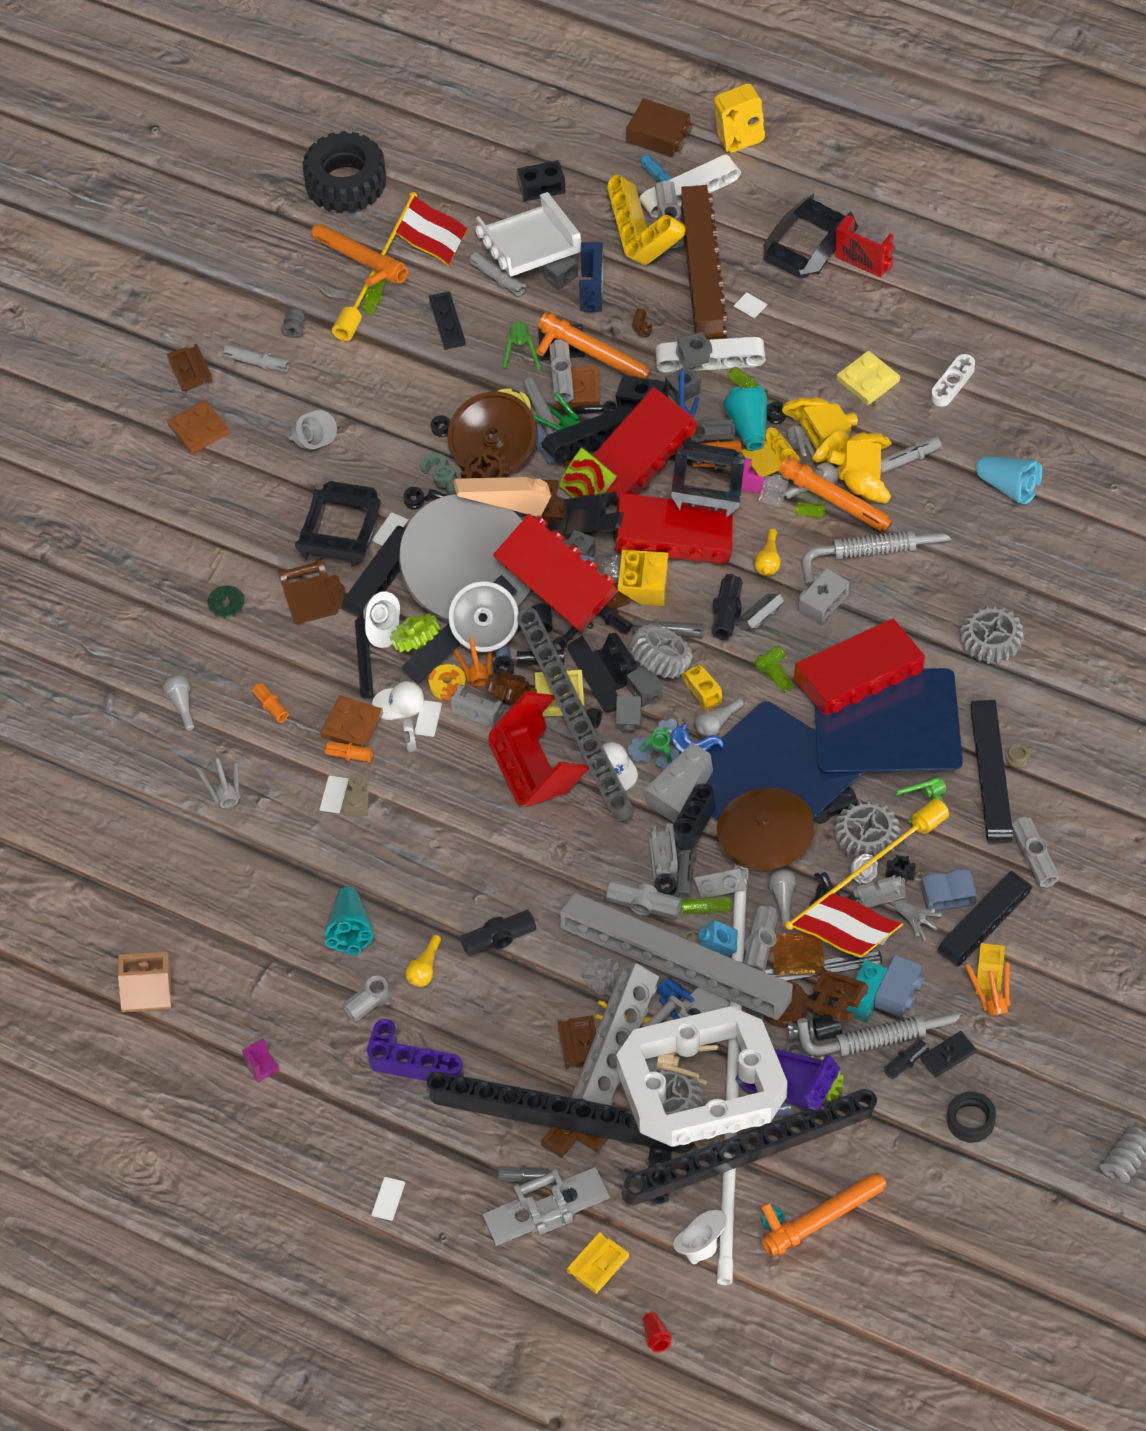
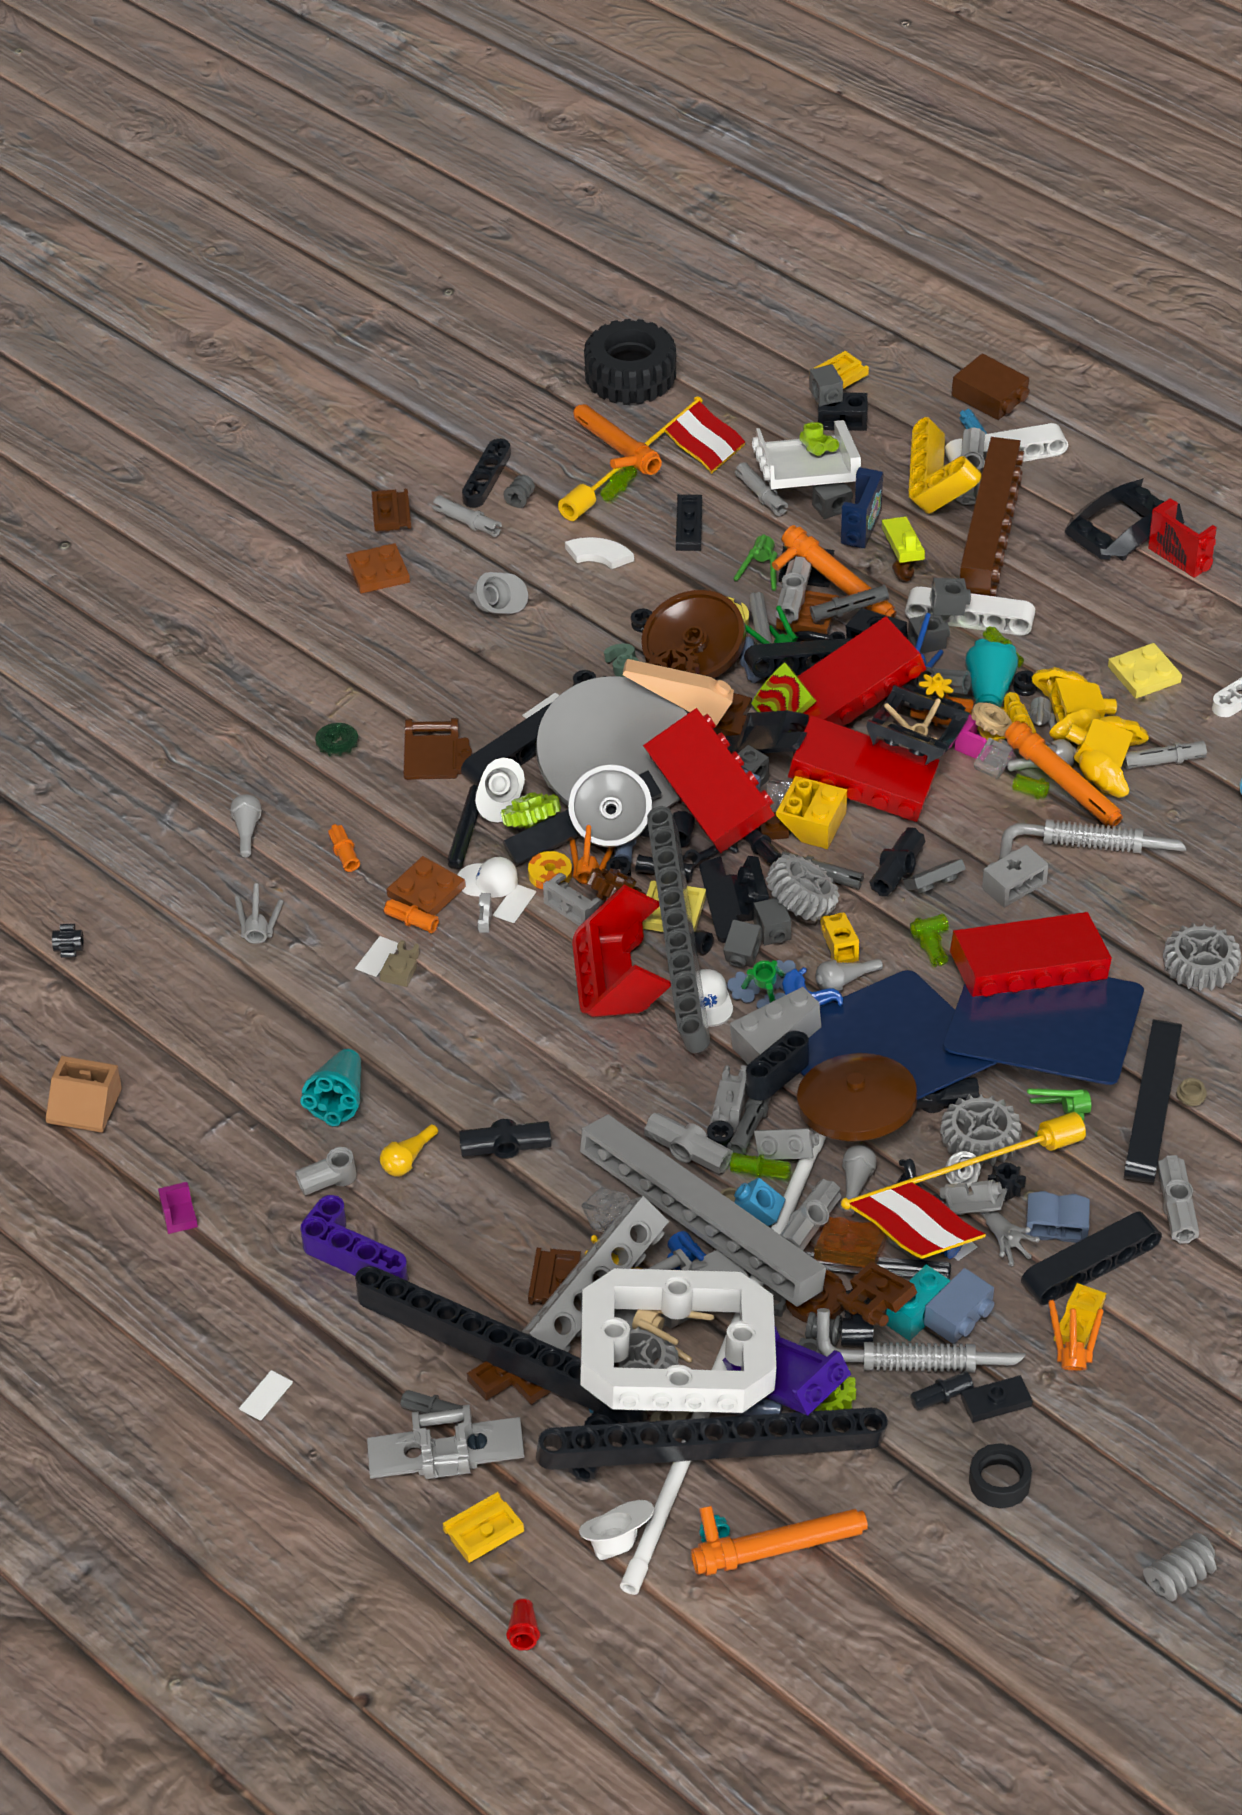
camera: 15 degrees right, 10 degrees down
(75, 845) = (67, 940): none -> black gear
(257, 310) = (481, 471): none -> black beam
(336, 546) = (456, 694): black wedge -> none
(381, 366) = (599, 550): none -> white tile
(523, 162) = (826, 385): none -> dark grey brick
(524, 140) = (848, 368): none -> yellow plate
(530, 217) = (816, 440): none -> lime plate
(603, 378) = (838, 606): none -> dark grey pin
(633, 298) = (903, 539): none -> neon yellow hinge
(707, 481) = (920, 728): none -> tan plant
(710, 438) = (936, 685): none -> yellow plant
(739, 118) = (1081, 388): yellow axle -> none
(750, 305) = (1034, 575): white sticker -> none
(767, 560) = (962, 825): yellow piece -> none
(770, 460) = (983, 715): none -> tan gear

